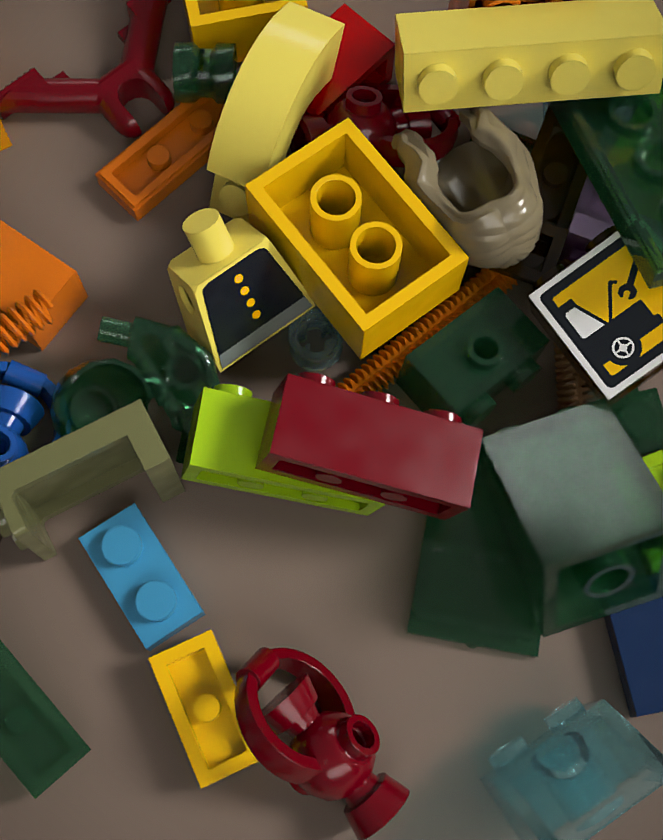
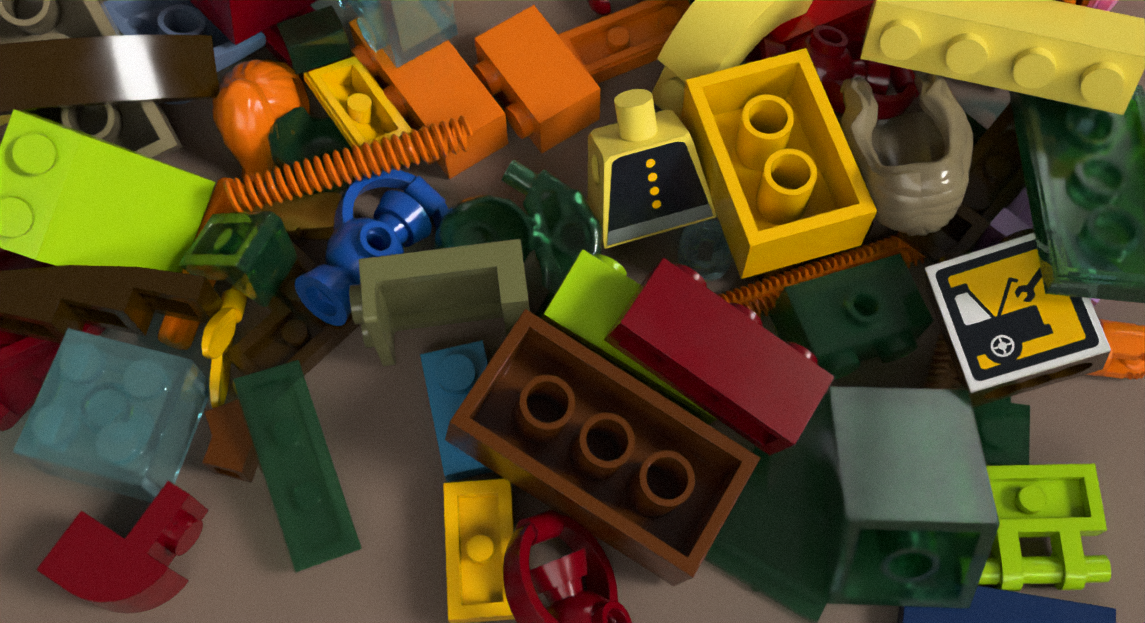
camera: 25 degrees right, 5 degrees down
(93, 224) = (536, 79): none -> orange brick
(289, 572) = (602, 449): none -> reddish brown brick

